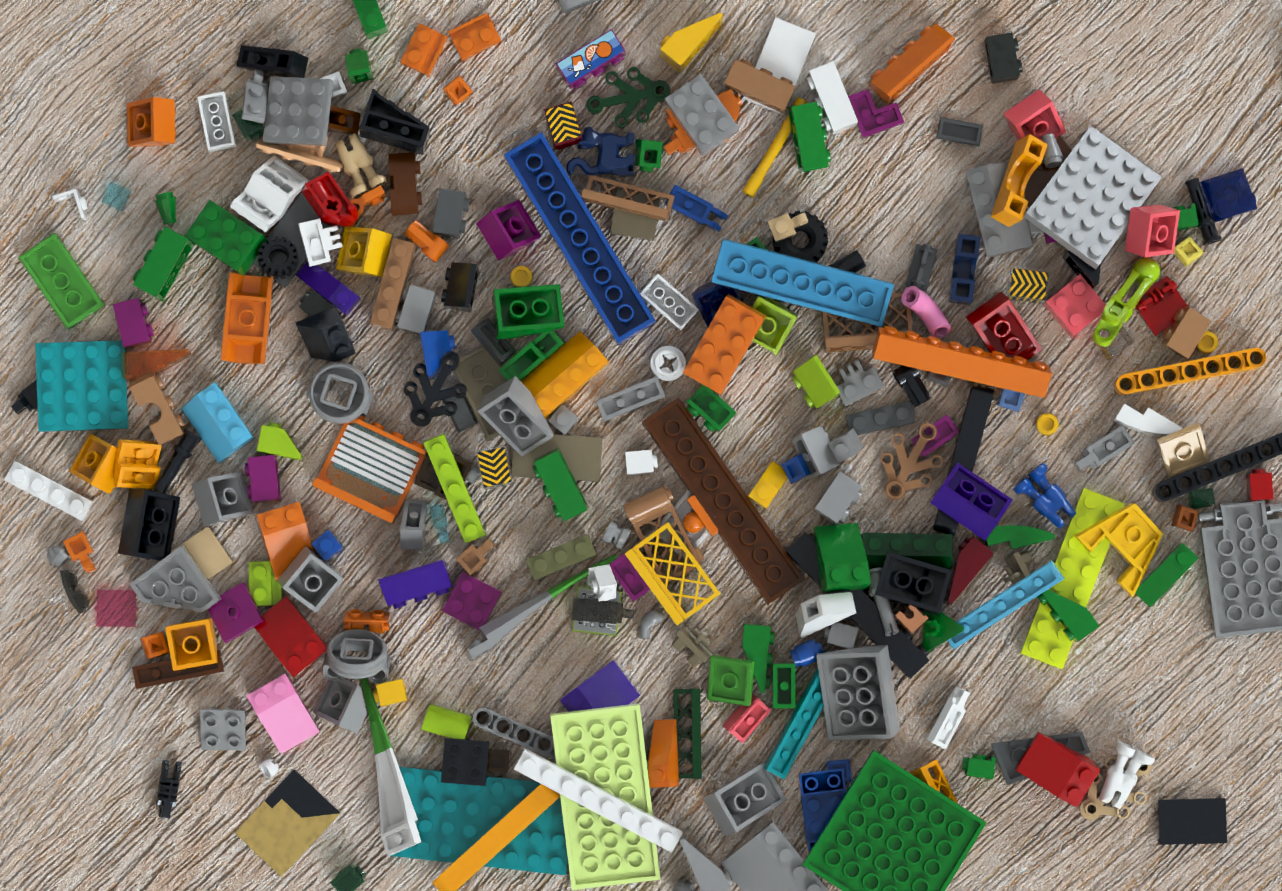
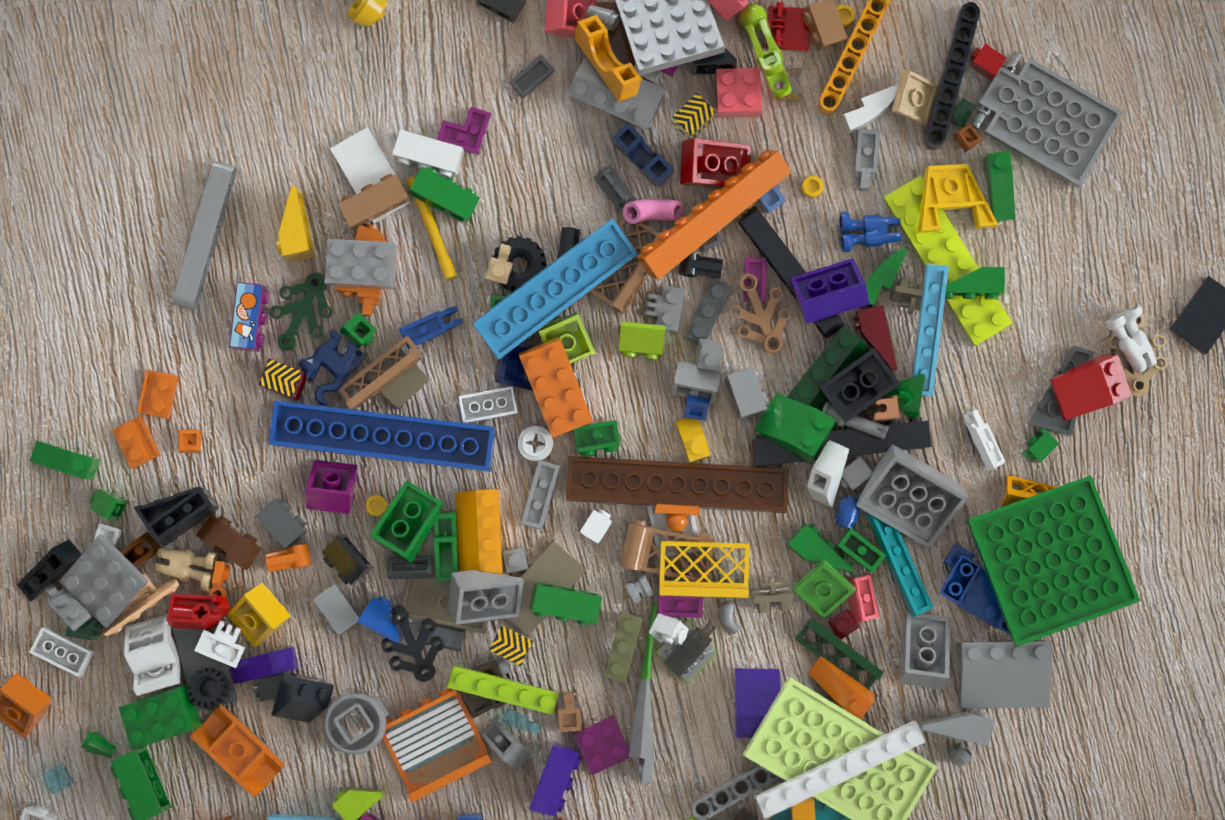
camera: 55 degrees left, 0 degrees up
(393, 284) = (302, 612): medium nougat brick -> none
(715, 718) = (844, 624): none -> dark red plate
(912, 63) = (449, 70): orange slope -> none

